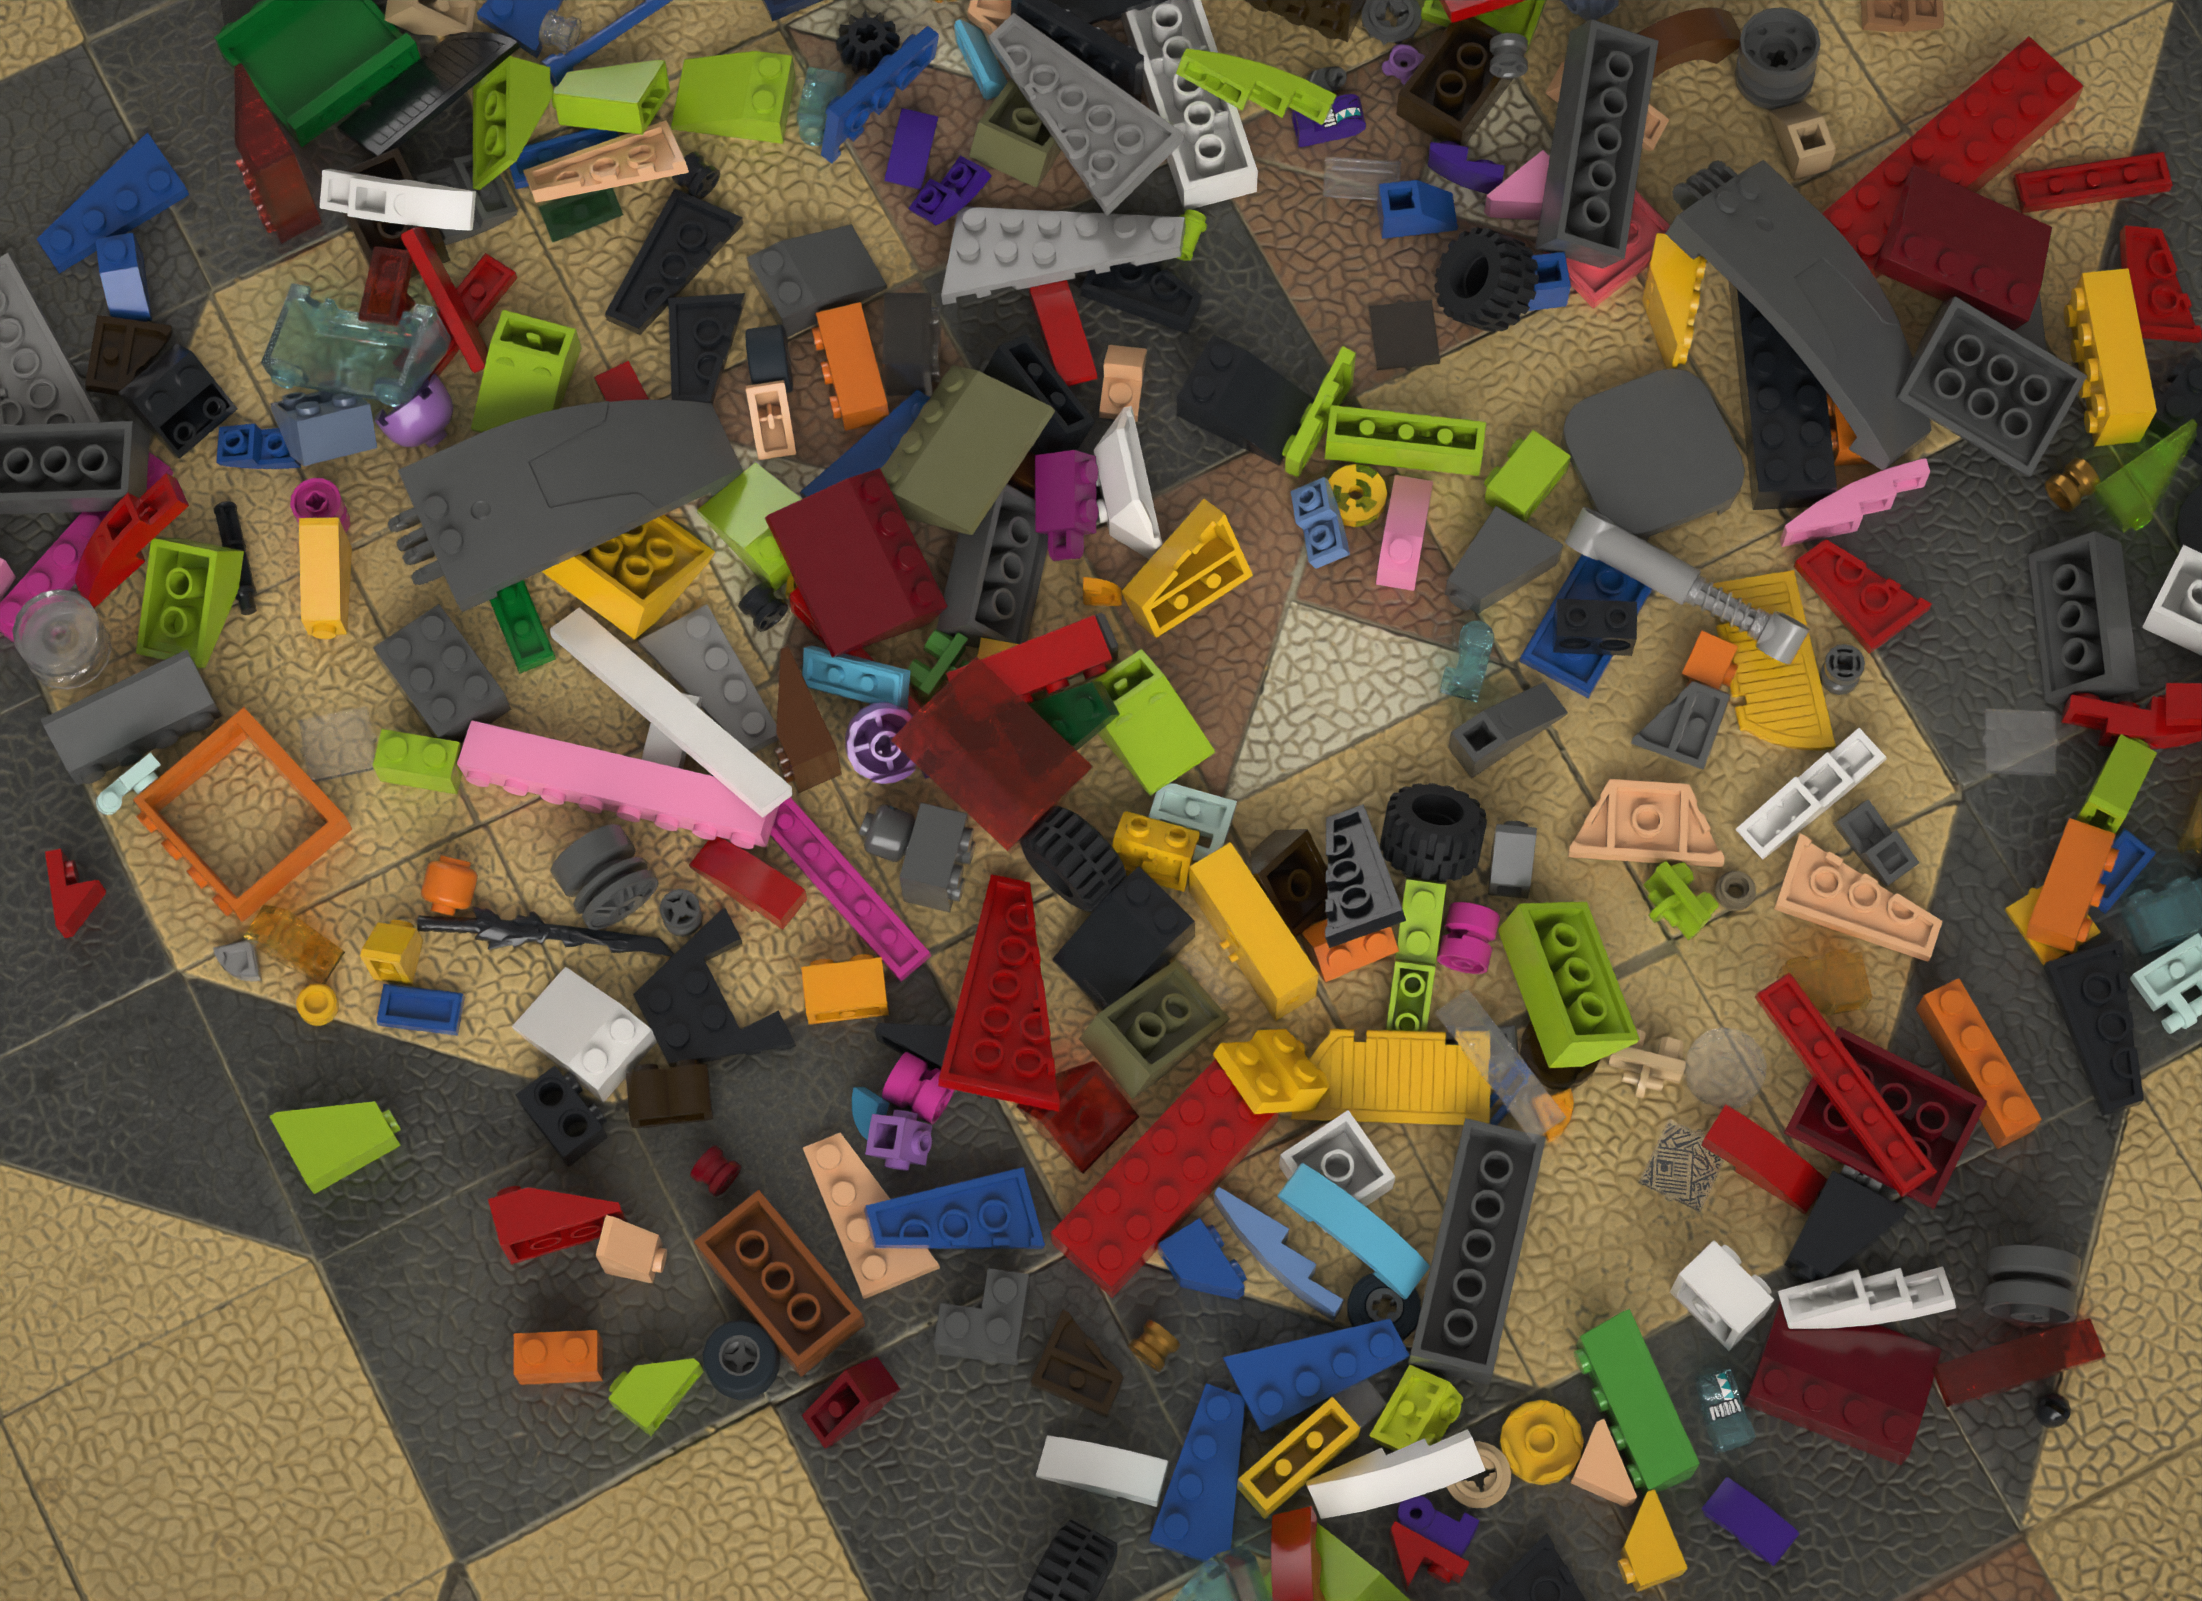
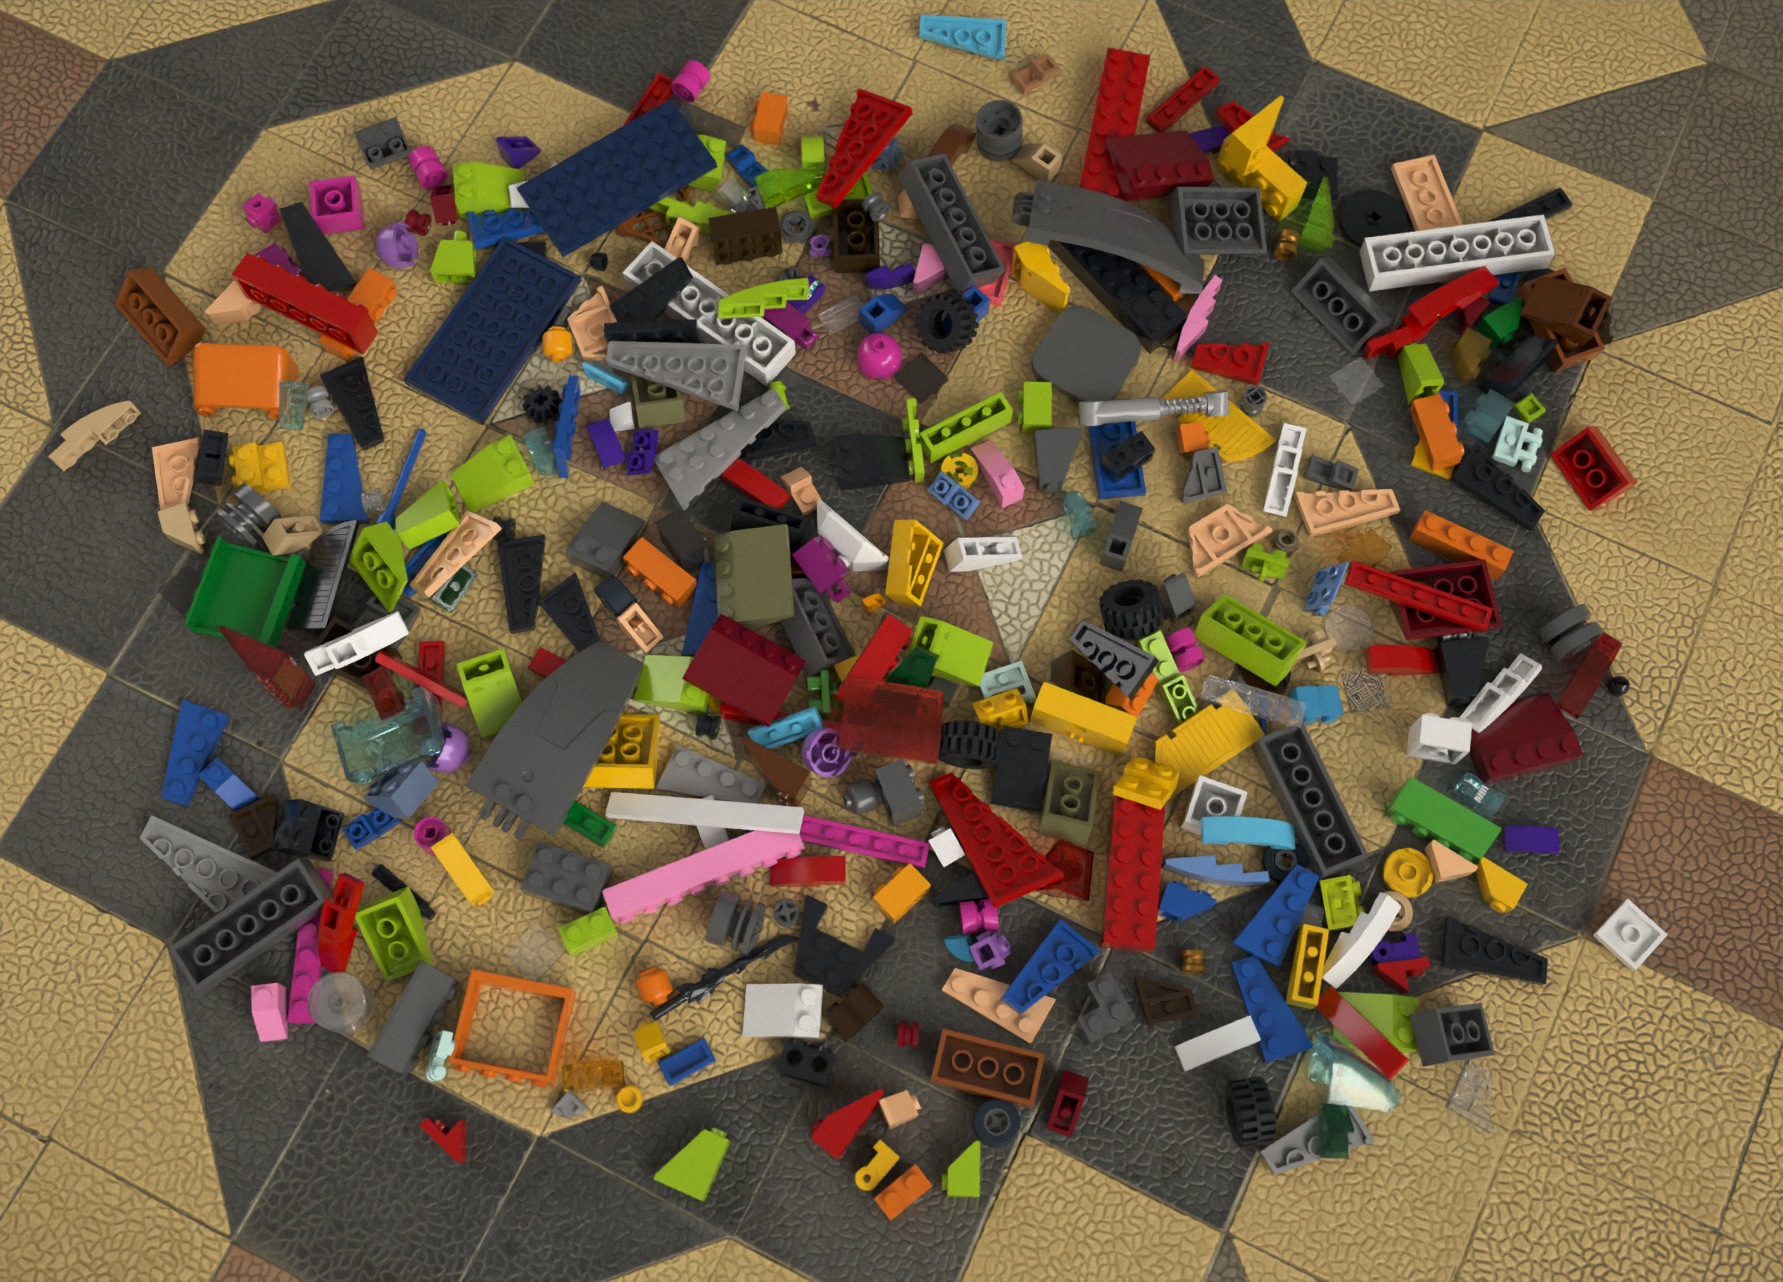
camera: 40 degrees left, 0 degrees up
(551, 1306) = (869, 1177): none -> yellow leg
(944, 969) = (946, 846): none -> white brick
(958, 129) = (622, 417): none -> white slope
(1106, 771) = (944, 685): none -> dark grey slope
(1274, 146) = (791, 323): none -> magenta brick
(1297, 624) = (981, 552): none -> white slope
(1366, 268) = (879, 356): none -> dark pink cylinder
(1593, 1133) = (1322, 703): none -> dark azure brick
(1742, 985) = (1325, 588): none -> medium blue hinge
(2071, 258) = (1210, 139): none -> dark purple slope
(2117, 295) = (1251, 139): none -> yellow slope

